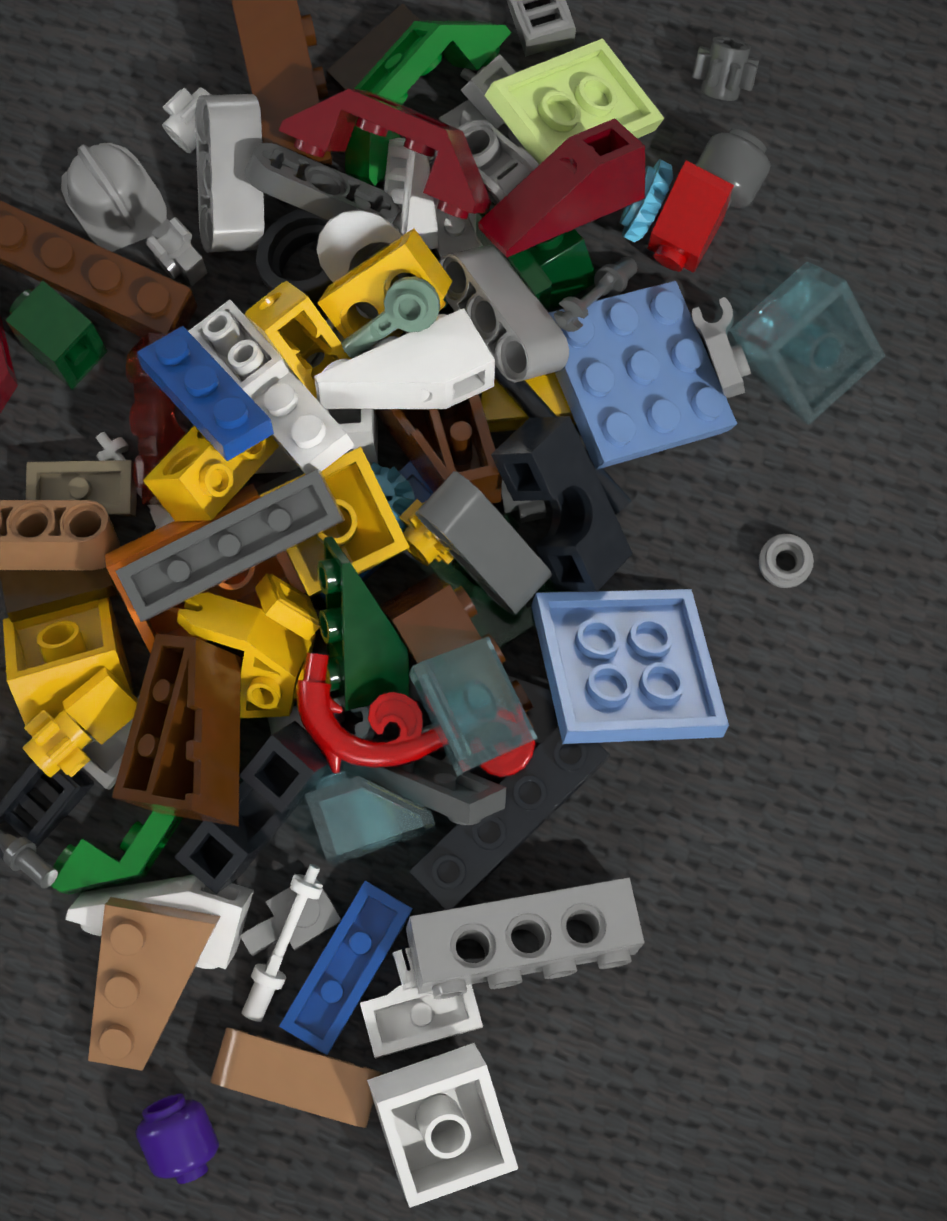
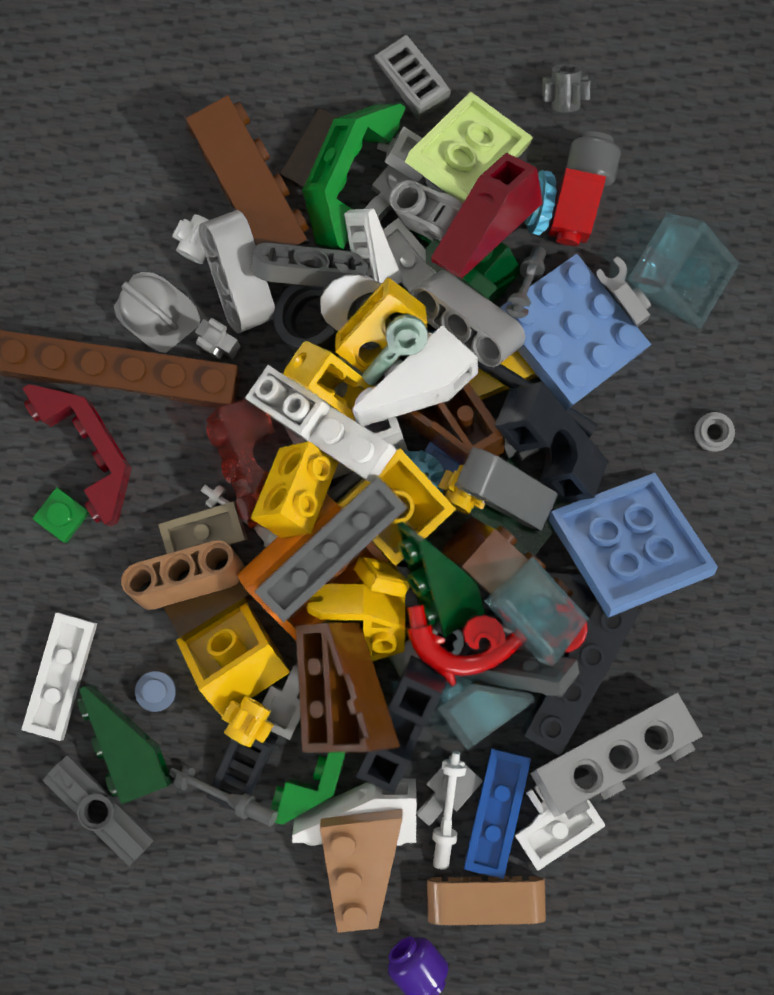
camera: 15 degrees left, 5 degrees up
(56, 334) = (150, 426): dark green brick -> none
(101, 705) = (270, 684): yellow tile -> none
(205, 393) = (276, 442): blue plate -> none
(442, 1124) = (601, 904): white brick -> none
(454, 172) = (405, 229): dark red slope -> none

